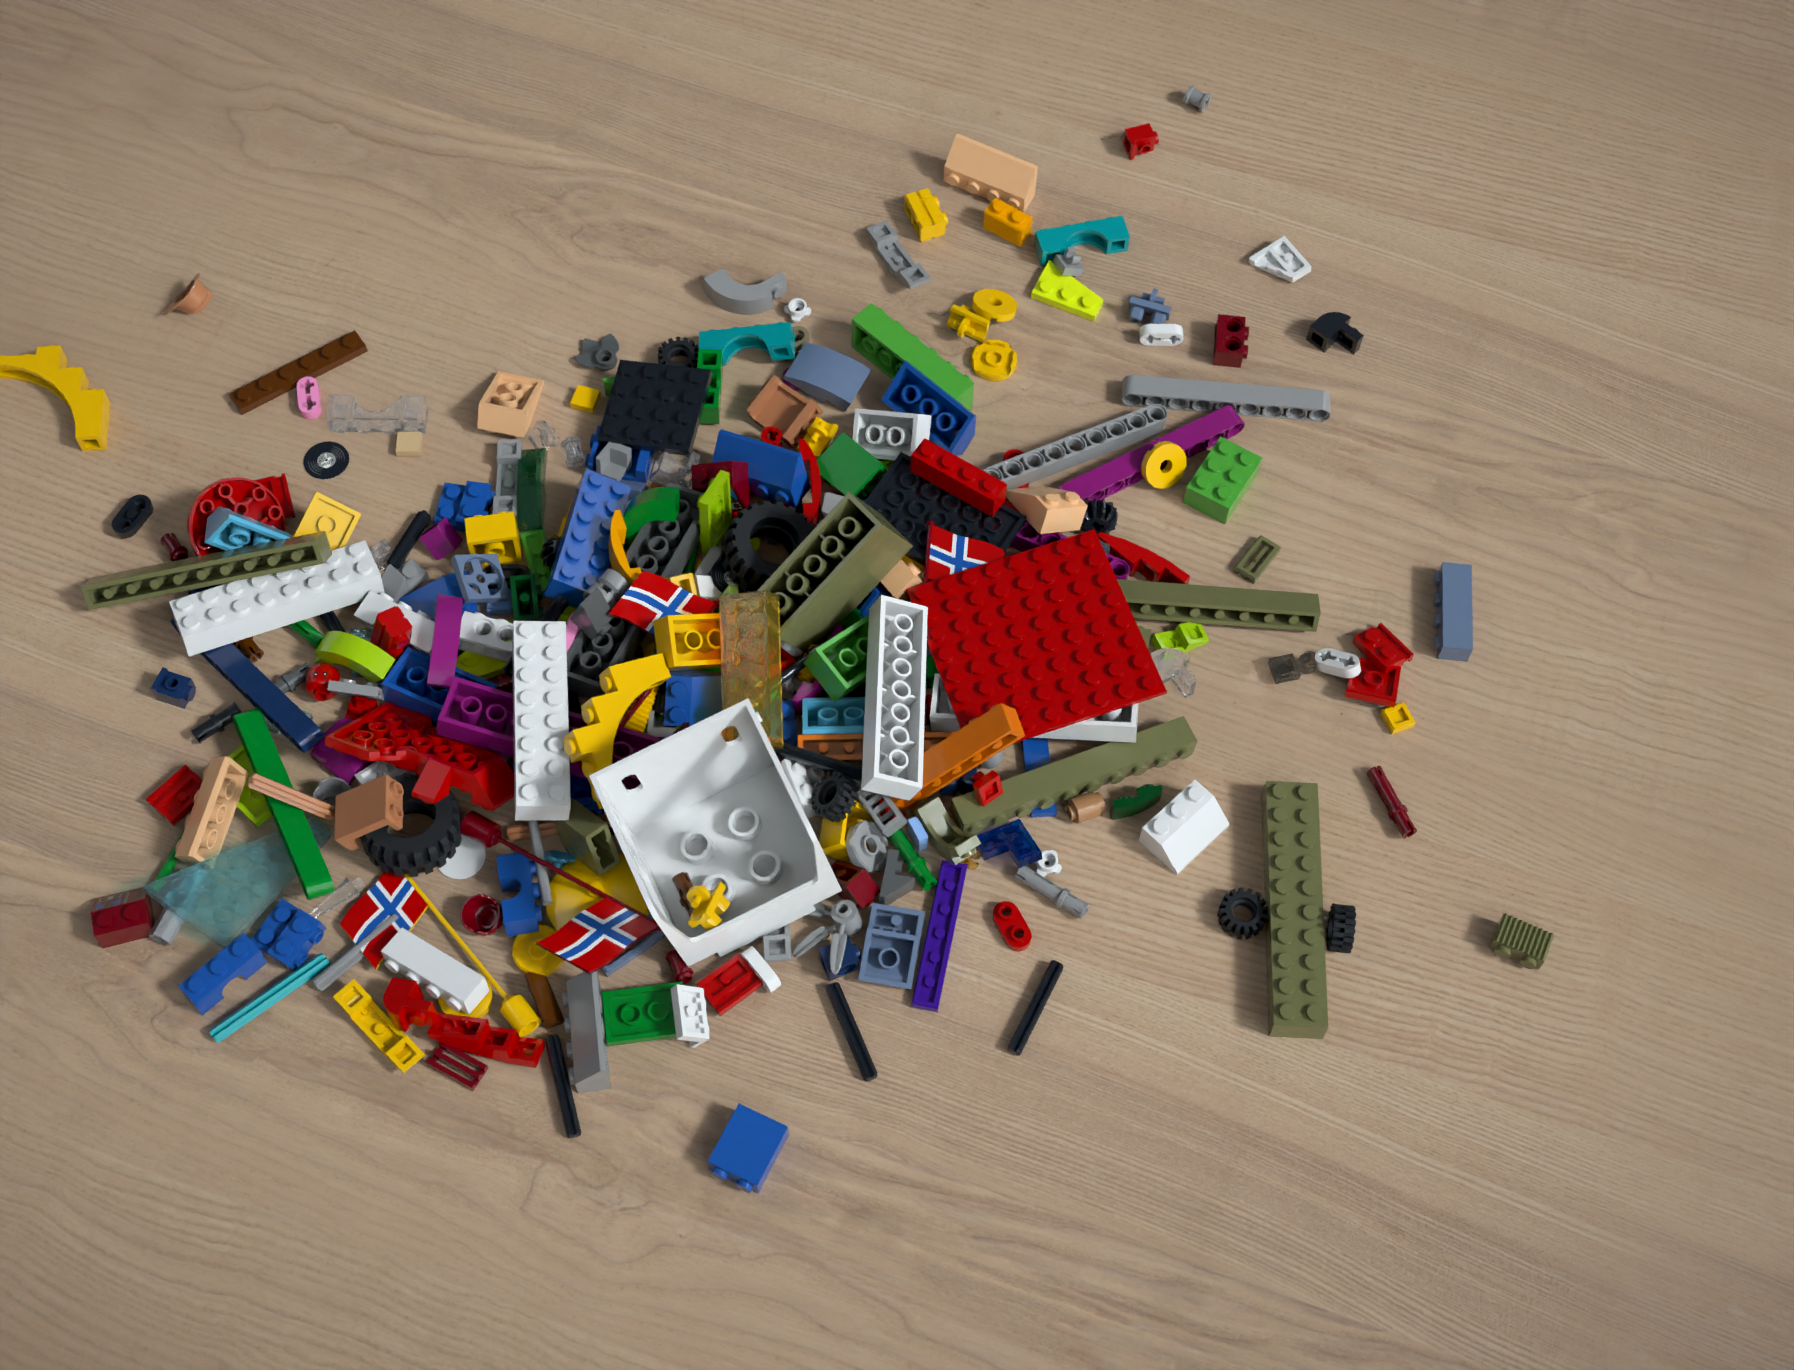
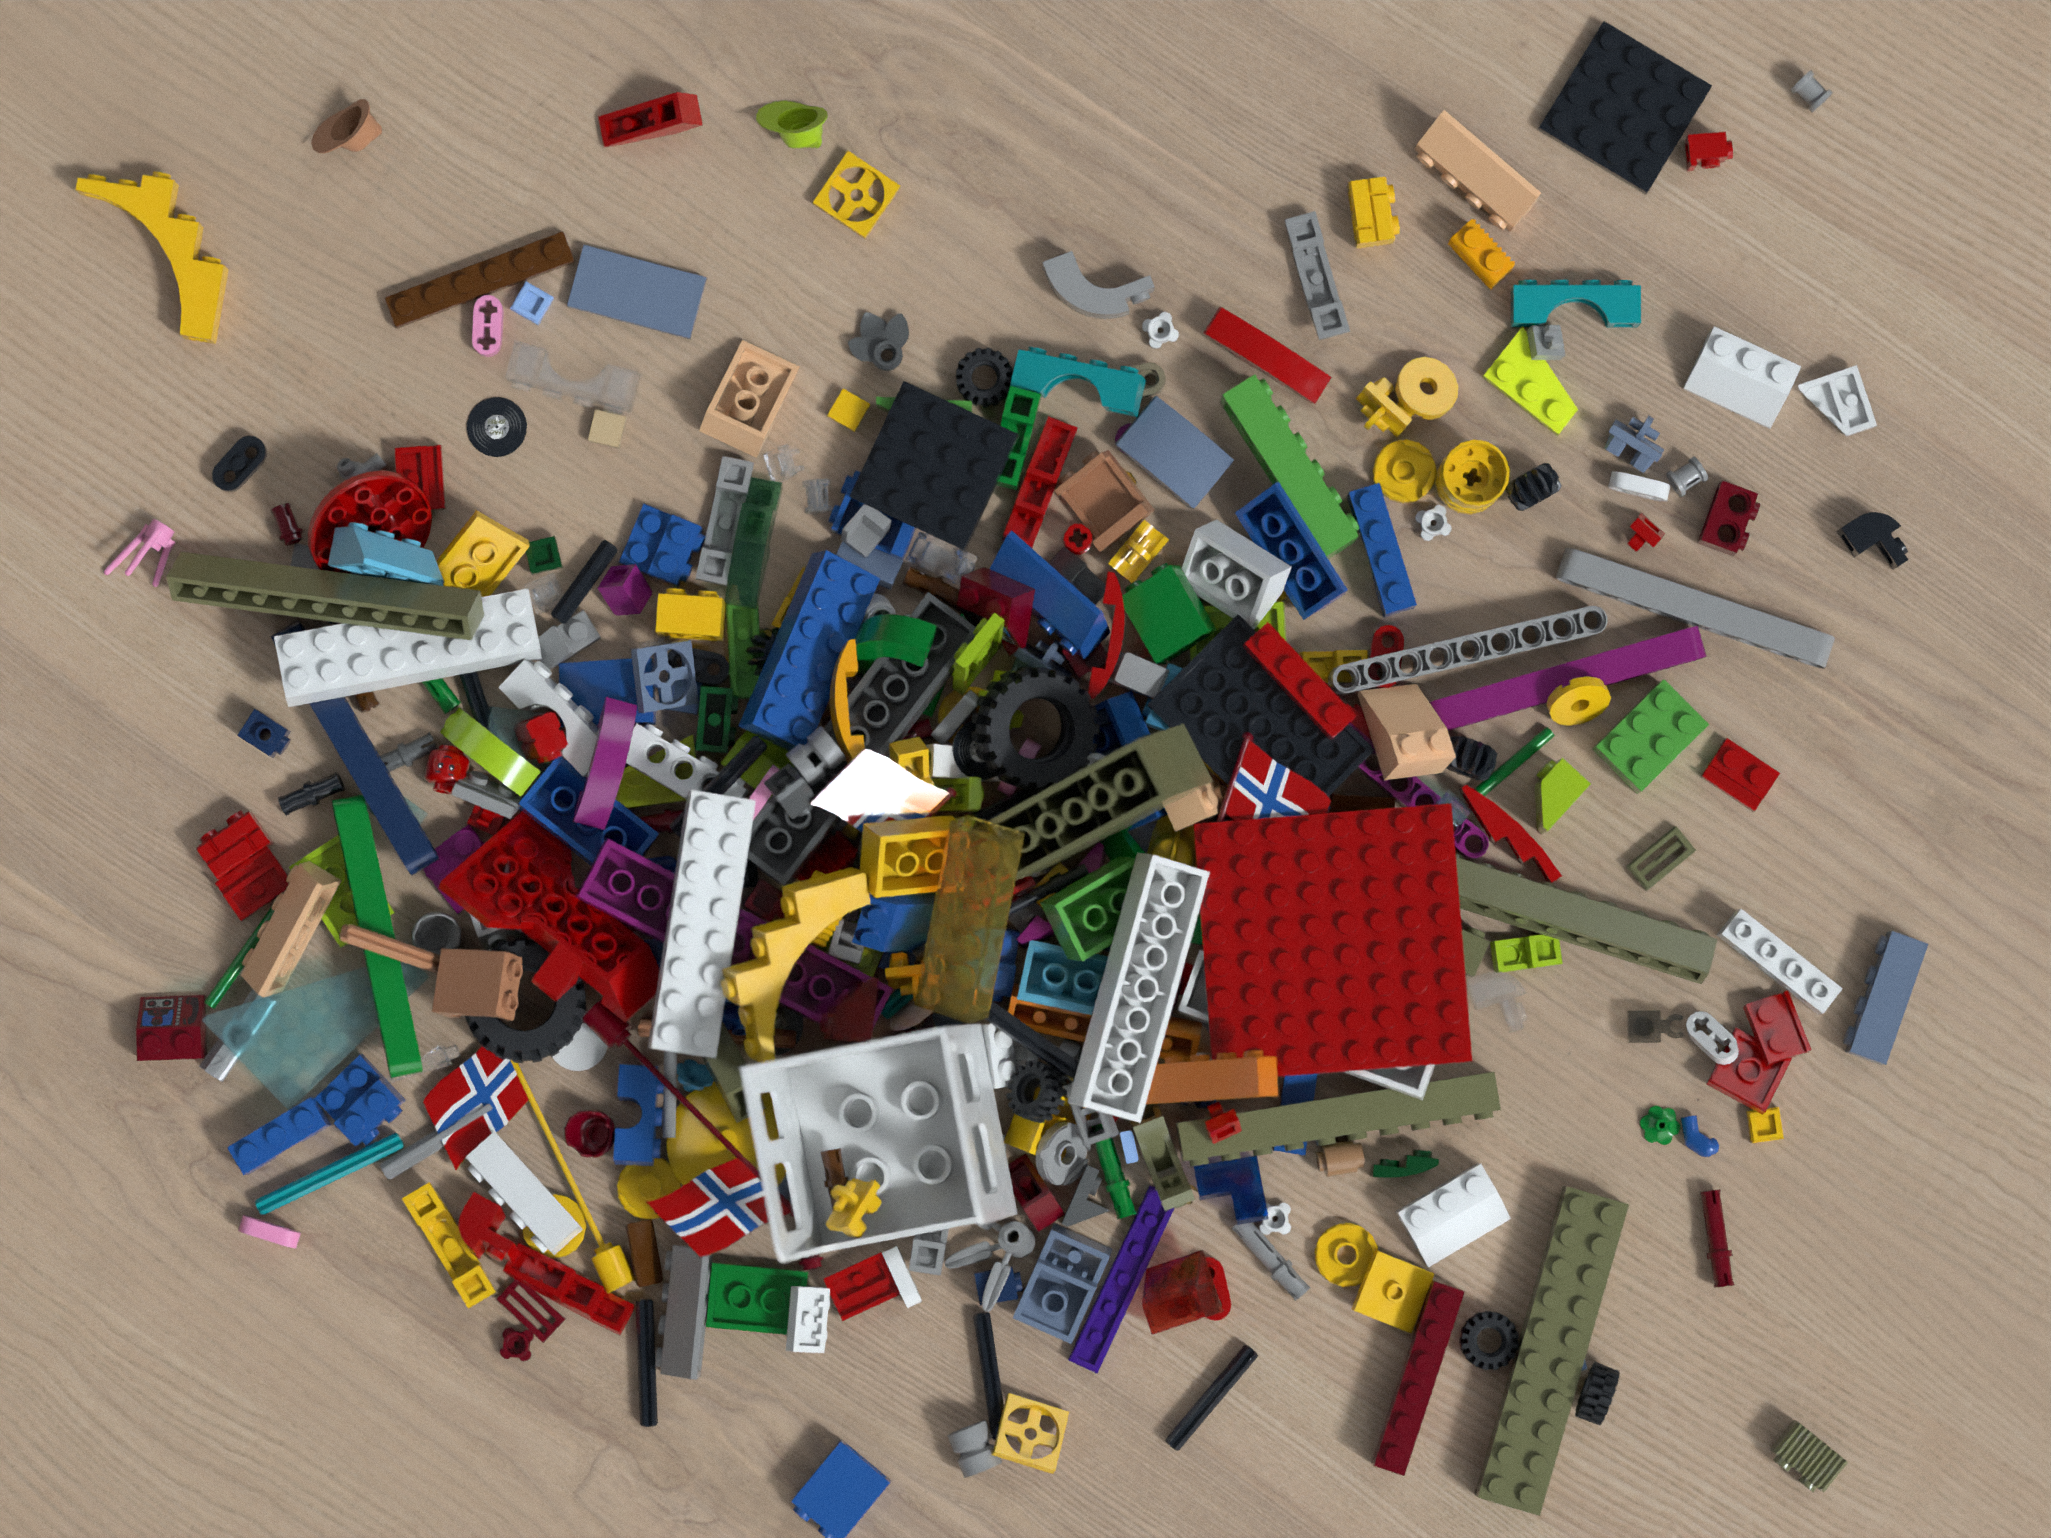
camera: 15 degrees right, 25 degrees up
(72, 575) = (153, 536): none -> bright pink plant
(157, 767) = (233, 844): none -> red brick
(224, 1051) = (269, 1231): none -> bright pink beam
(339, 379) = (531, 303): none -> light blue tile
(374, 529) = (543, 555): none -> dark green plate
(408, 252) = (651, 119): none -> red slope
(415, 358) = (637, 292): none -> sand blue tile
(449, 1088) = (509, 1350): none -> dark red plate
(513, 240) = (795, 123): none -> lime piece
(570, 259) = (864, 227): none -> yellow piece
(736, 402) = (1040, 480): none -> red slope
(854, 1089) = (974, 1448): none -> light grey wheel
(856, 298) = (1267, 355): none -> red slope
(895, 1049) = (1036, 1410): none -> yellow piece
(989, 928) = (1179, 1293): none -> clear red slope
(1006, 421) = (1382, 550): none -> blue arch
(1024, 380) = (1441, 527): none -> white plate
(1043, 345) = (1488, 470): none -> yellow wheel
(1077, 132) = (1624, 107): none -> black plate
(1087, 344) = (1533, 486): none -> black gear
(1103, 890) = (1327, 1249): none -> yellow tile
(1133, 515) = (1515, 761): none -> green bar
(1155, 894) = (1392, 1291): none -> yellow plate
(1168, 522) = (1556, 791): none -> lime slope
(1174, 360) = (1645, 532): none -> red tile
(1193, 322) = (1687, 476): none -> light grey bush
(1195, 952) = (1417, 1378): none -> dark red brick
(1209, 258) = (1741, 377): none -> white slope
(1294, 495) = (1740, 774): none -> red plate
(1319, 736) = (1651, 1122): none -> green plant
(1351, 738) = (1697, 1141): none -> blue arm
(1368, 602) = (1779, 961): none -> white brick

